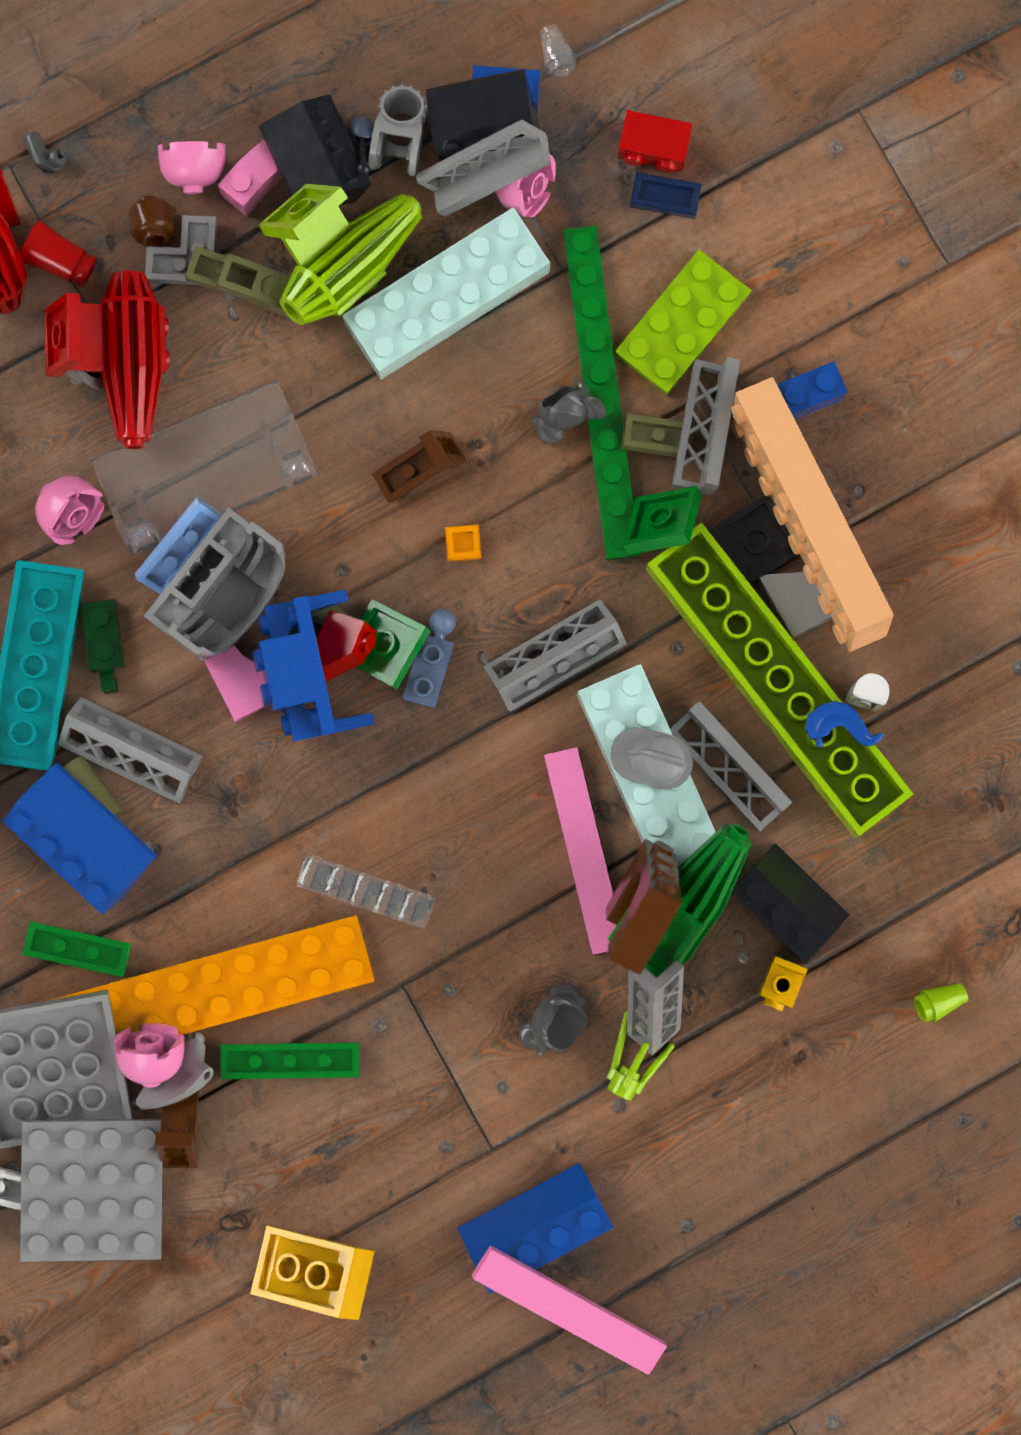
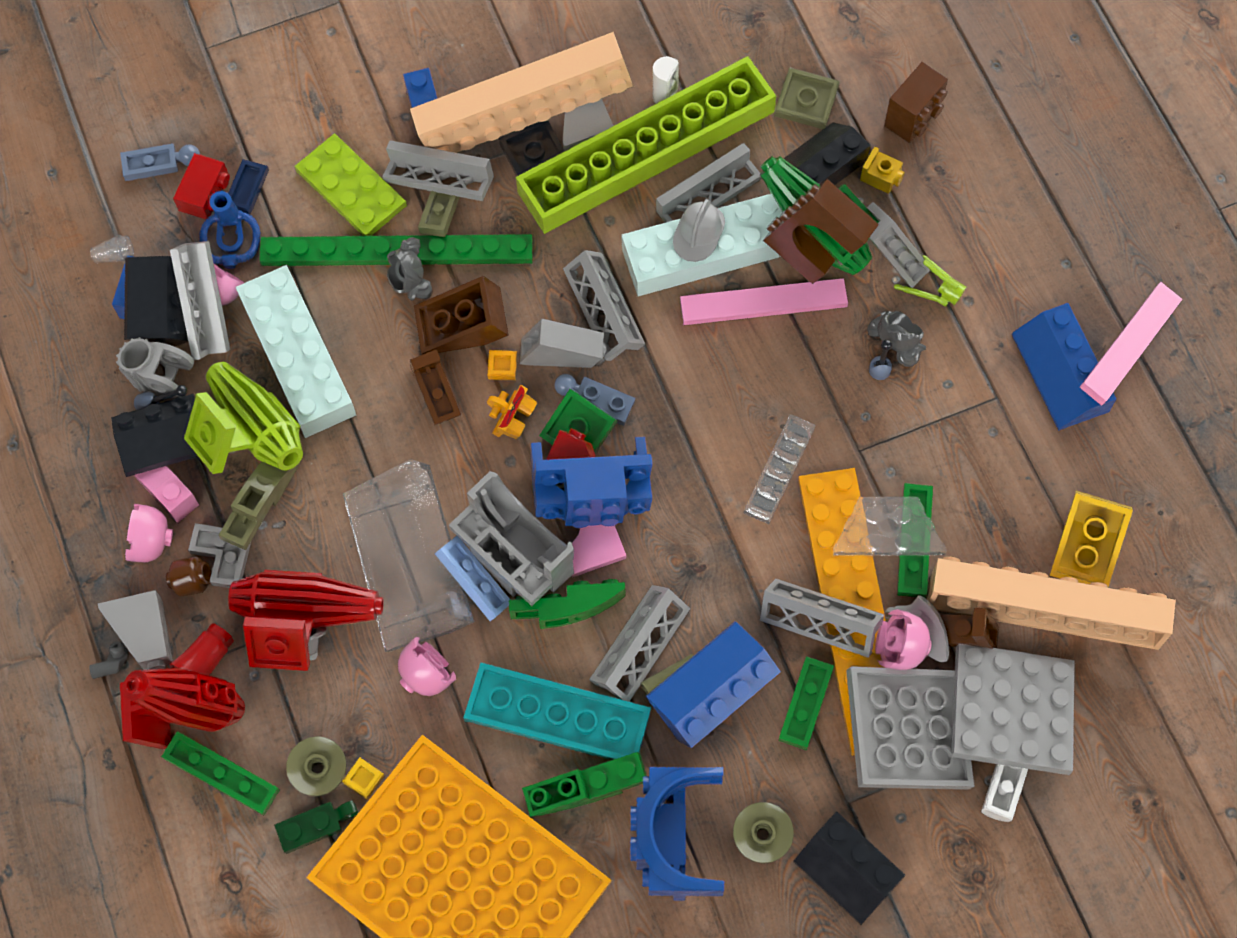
camera: 80 degrees left, 15 degrees down
(82, 180) = (141, 627): none -> light grey slope
(103, 641) = (545, 656): dark green plate -> none
(167, 673) = (581, 603): none -> green slope
(180, 955) = (826, 609): none -> light grey fence
(218, 1226) = (1052, 603): none -> light nougat brick
(293, 1027) = (889, 528): none -> clear wing
(384, 557) = (518, 402): none -> light orange hips
(488, 612) = (561, 346): none -> light grey slope
(513, 1002) = (883, 365): none -> sand blue hinge
(514, 484) = (462, 317): none -> reddish brown slope
(619, 179) = (227, 215): none -> blue piece
(662, 520) = (509, 207): green plate -> none
(685, 80) = (155, 160): none -> sand blue plate
(837, 714) = (680, 98): blue piece -> none
(879, 1018) = (916, 102): none -> reddish brown brick
(880, 878) = (807, 98): none -> olive tile
(939, 1001) = (903, 64): lime cone -> none

